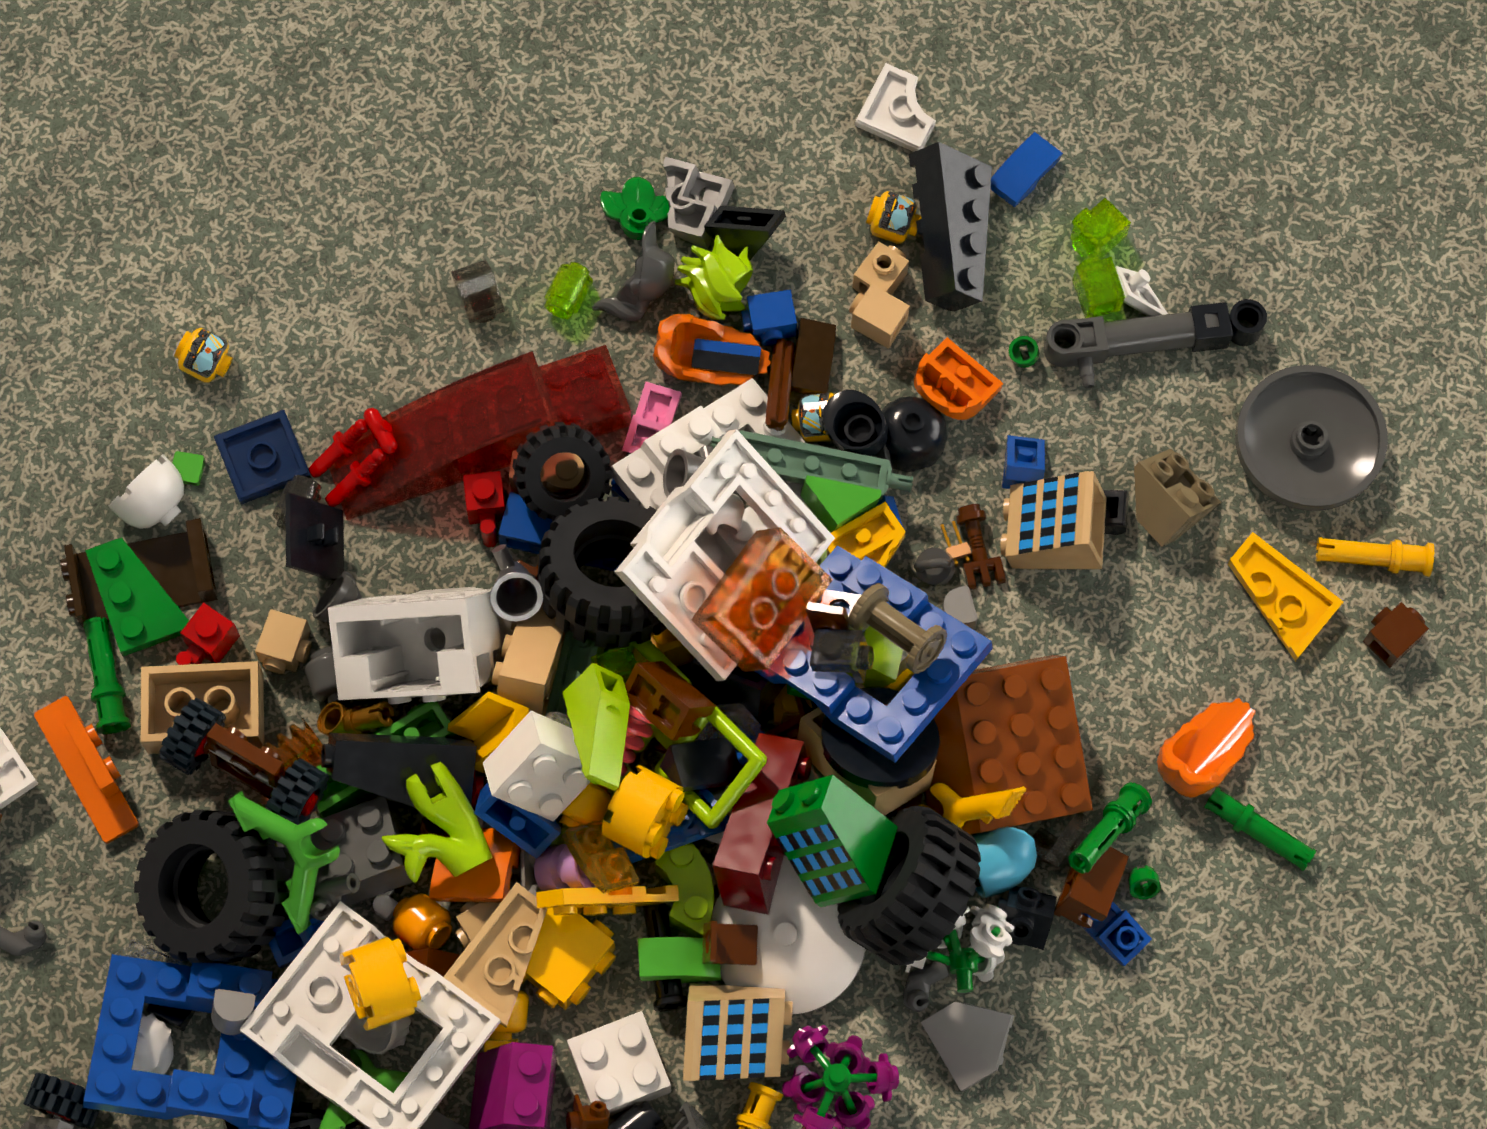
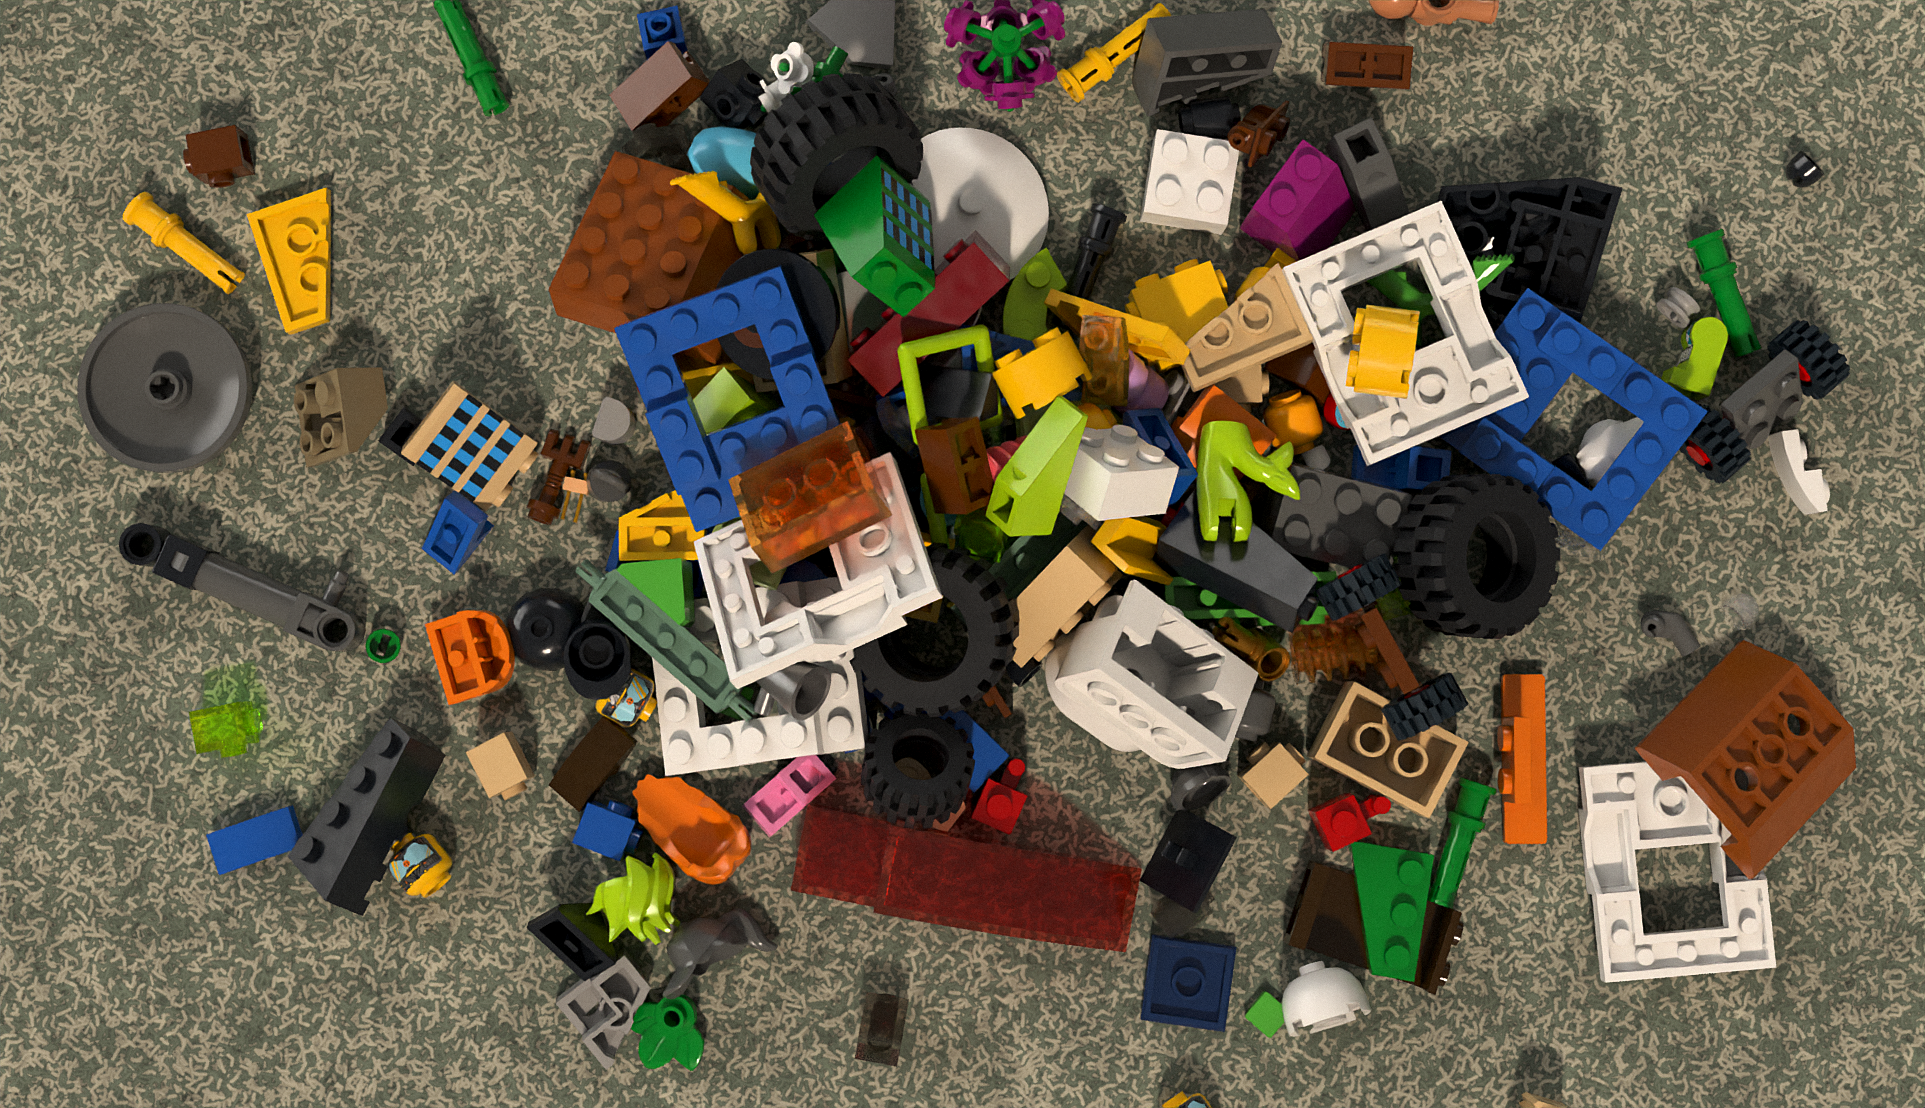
camera: 150 degrees left, 15 degrees up
(231, 1010) = (1522, 422): light grey brick -> none
(299, 844) = (1385, 534): bright green piece -> none
(331, 892) = (1374, 477): dark grey arm -> none
(343, 444) = (1106, 940): red piece -> none
(518, 597) = (1034, 668): flat silver piece -> none
(568, 290) = (789, 979): clear neon green brick -> none
(675, 959) = (1080, 240): bright green slope -> none
(726, 356) = (677, 813): black sticker -> none
(729, 944) = (1029, 223): reddish brown bracket -> none
(735, 1032) = (1071, 144): slope -> none
(780, 384) = (643, 749): reddish brown axle -> none
(828, 616) = (756, 435): reddish brown bracket -> none
(841, 652) = (766, 397): clear smoke bracket -> none
(874, 611) = (698, 386): dark tan hose -> none
(883, 268) = (468, 813): tan brick -> none
(894, 110) = (344, 983): white tile -> none
(1098, 287) = (266, 667): clear neon green brick -> none
(1117, 819) = (596, 133): green pin -> none
(1139, 293) = (232, 641): white piece -> none
(1148, 889) = (609, 69): green hinge -> none
(1206, 748) = (469, 153): orange hair -> none

